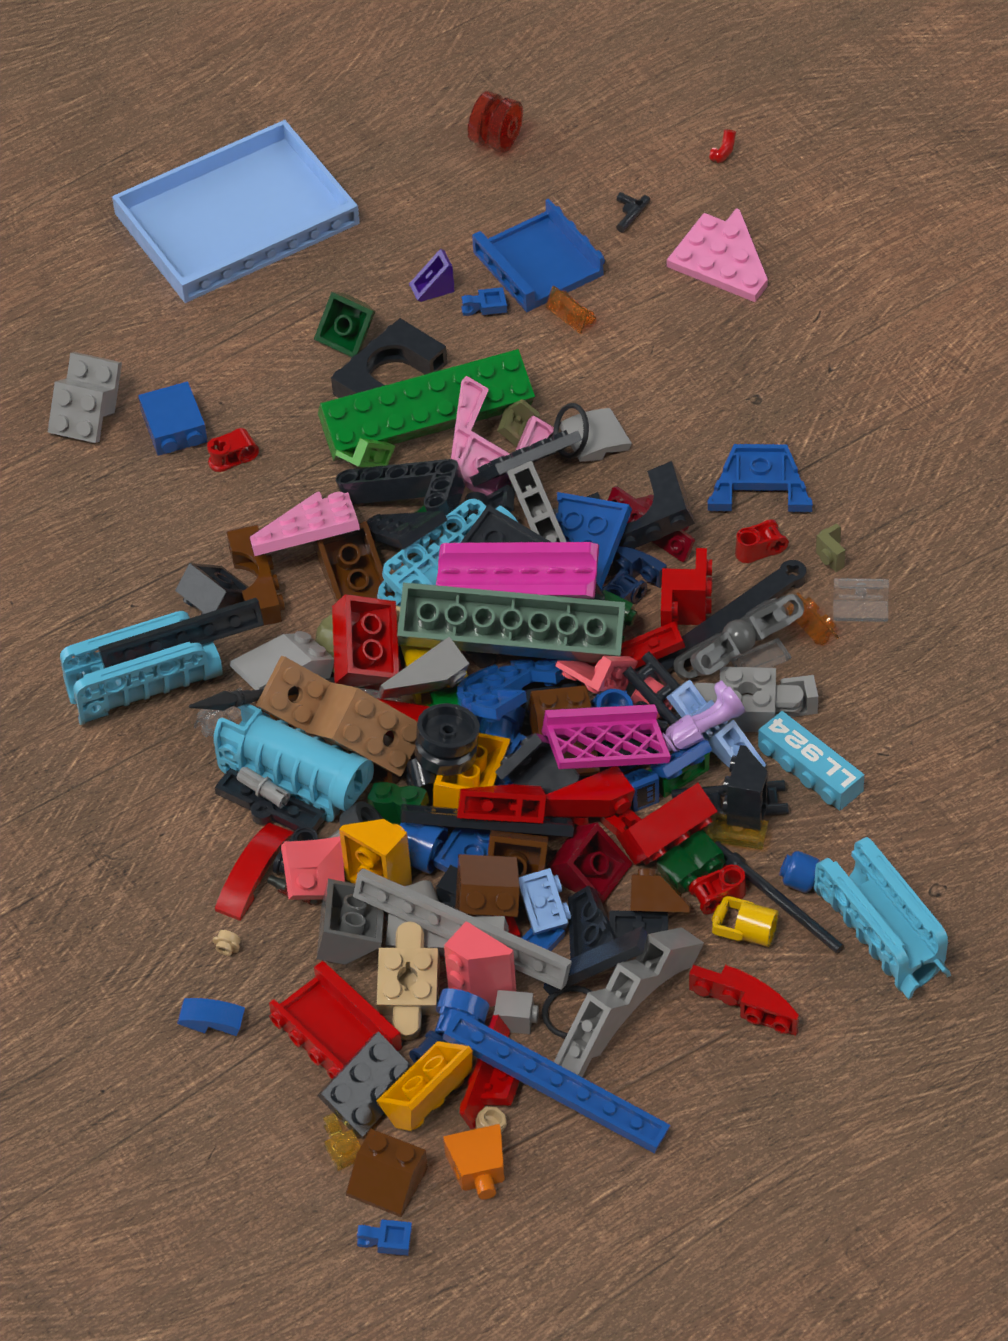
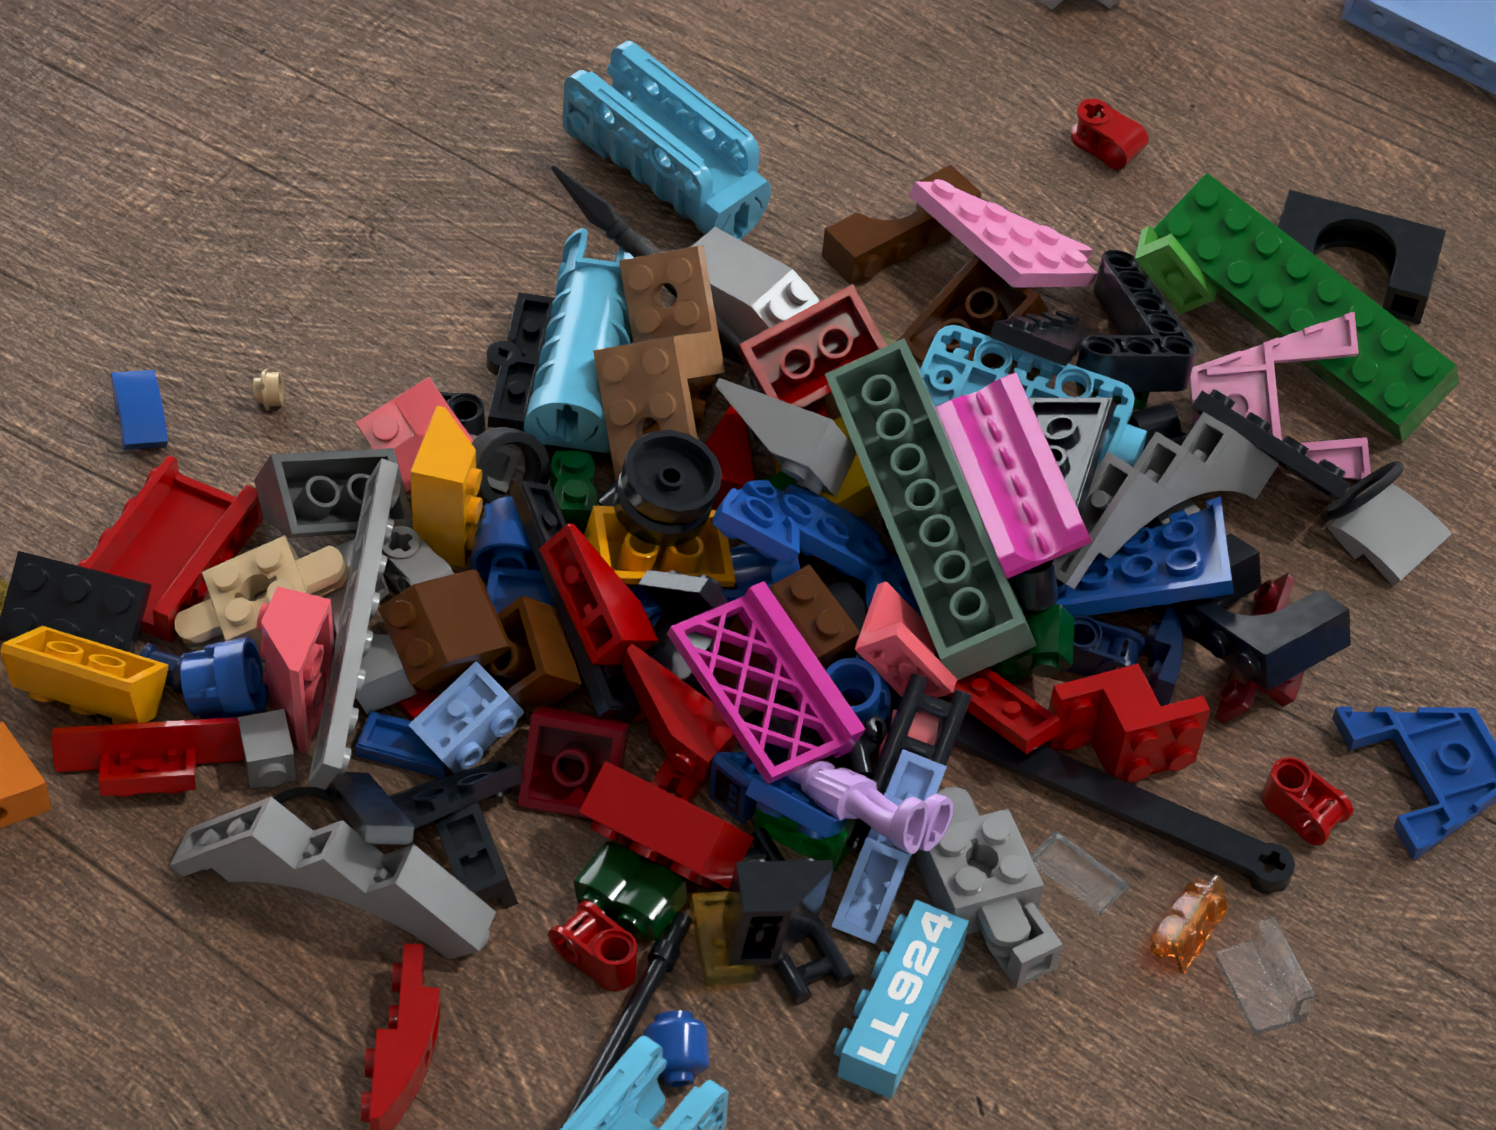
camera: 60 degrees right, 0 degrees up
(172, 418) = (1124, 59): blue brick -> none
(198, 629) = (726, 158): black tile -> none
(210, 587) = (852, 181): slope -> none
(250, 869) = (398, 371): red slope -> none
(263, 787) = (530, 337): light grey axle -> none
(344, 323) = (1408, 177): dark green slope -> none
(491, 1116) = (66, 781): tan tile -> none
(515, 420) = (1349, 422): olive bracket -> none
(557, 1082) = (141, 836): blue plate -> none
(655, 893) = (533, 855): reddish brown slope -> none
(738, 636) = (1083, 818): dark grey piece -> none
(753, 923) = (545, 999): yellow piece -> none
(829, 547) = (1352, 891): olive bracket -> none

